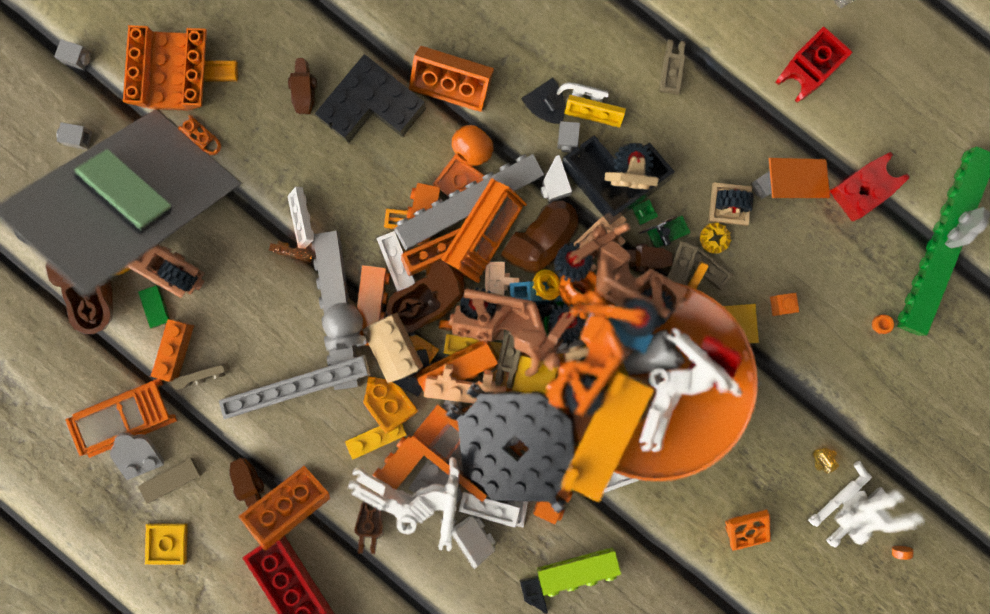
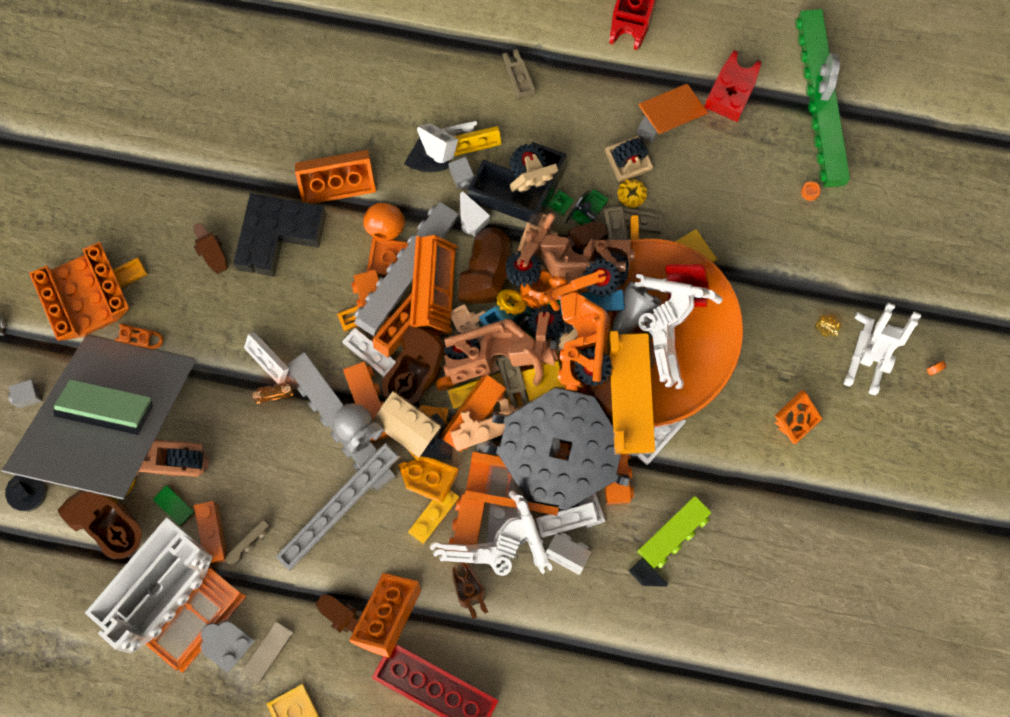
camera: 30 degrees left, 10 degrees down
(115, 362) = (150, 588): none -> white wedge
(560, 96) = (437, 142): none -> white slope
(784, 304) = (719, 216): orange brick -> none

